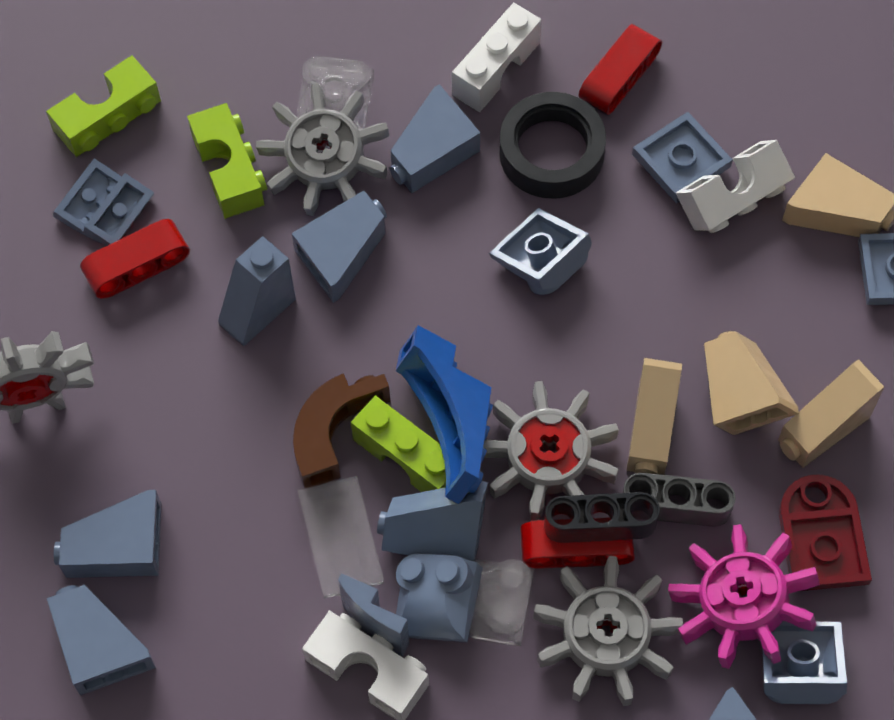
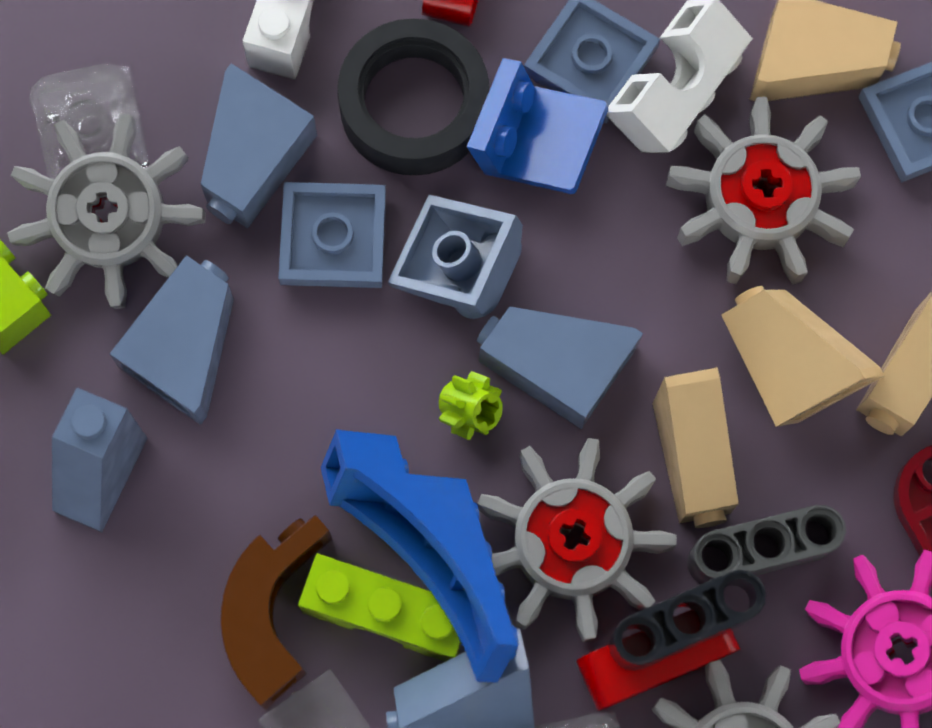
camera: 25 degrees left, 10 degrees up
(465, 212) = (332, 235): none -> sand blue plate
(513, 344) = (470, 405): none -> lime gear
(585, 336) = (558, 358): none -> sand blue slope
(622, 190) = (535, 132): none -> bracket
(762, 296) = (744, 212): none -> light grey gear

